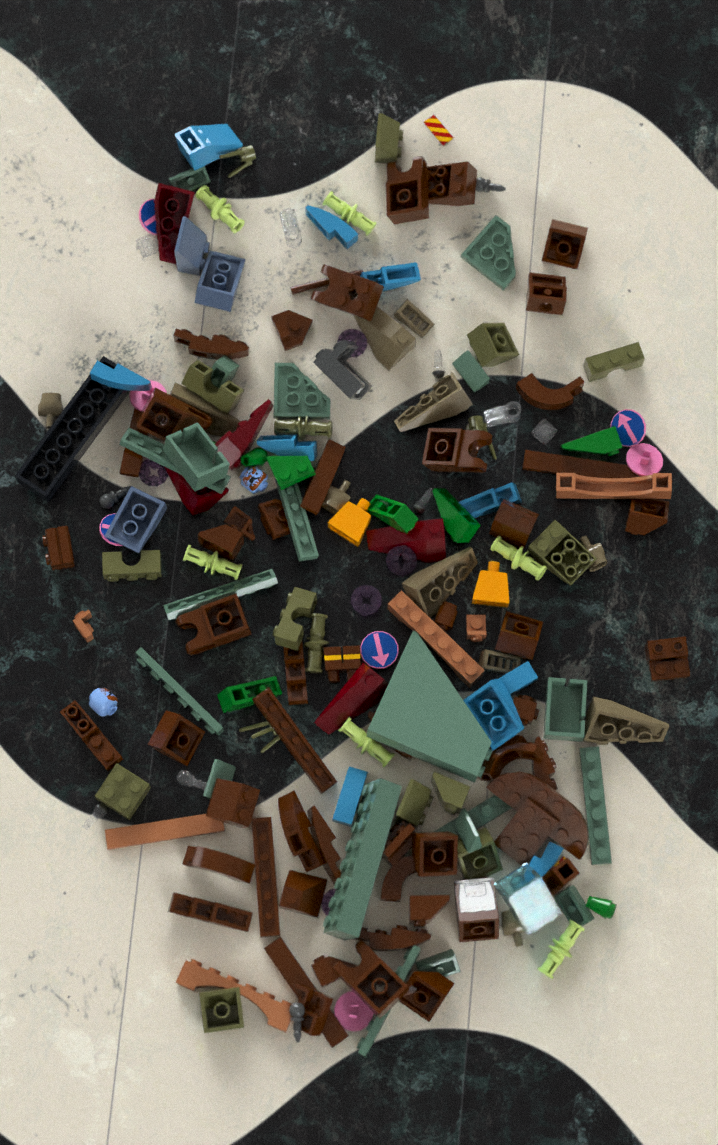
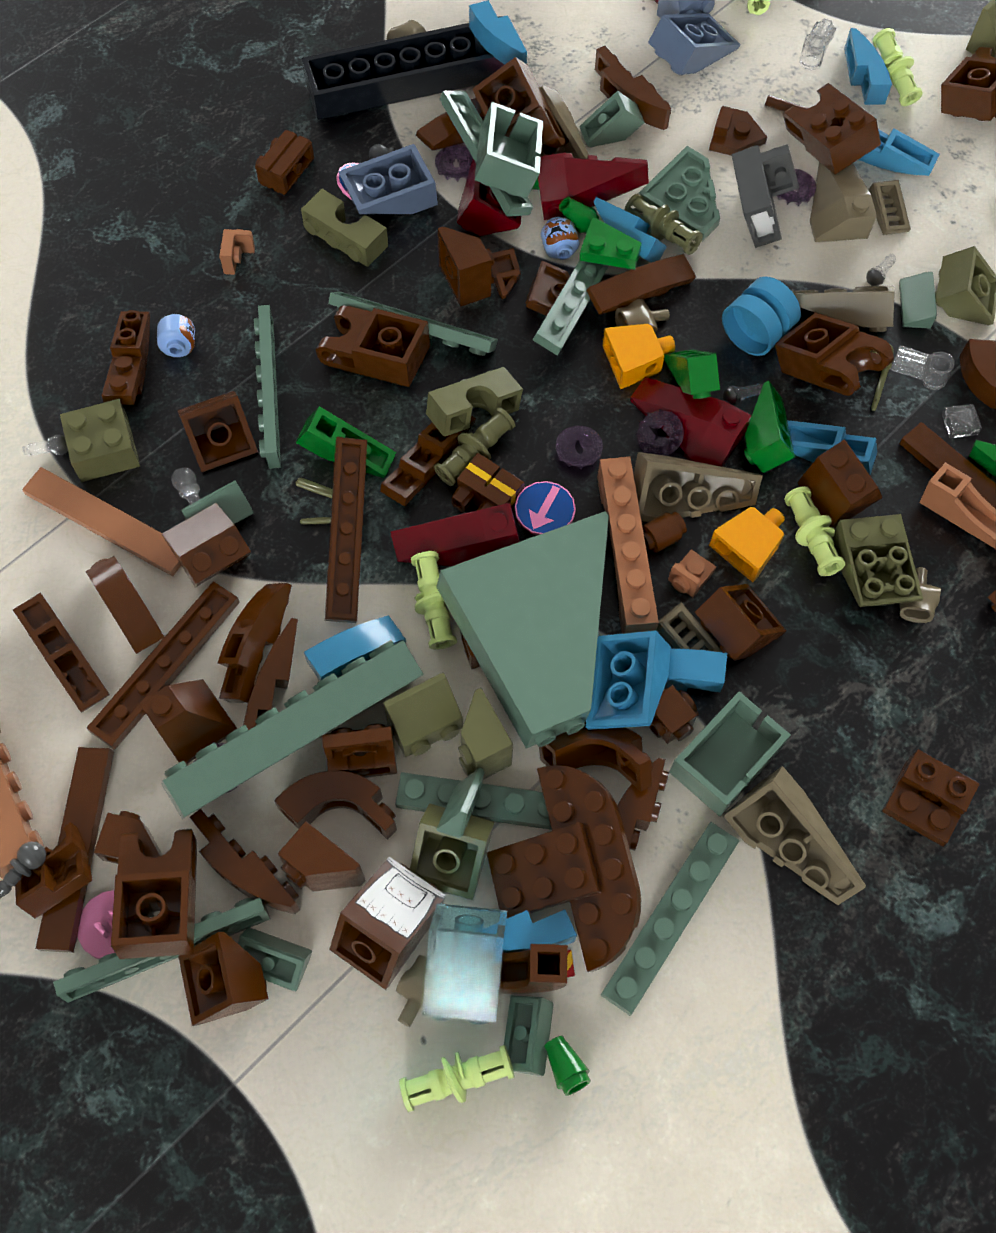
camera: 40 degrees right, 10 degrees down
(199, 381) = (598, 128): olive arch -> none
(212, 562) = (434, 284): yellowish green piece -> none
(402, 451) = (761, 316): none -> dark azure wheel
(435, 853) = (392, 798): reddish brown slope -> none

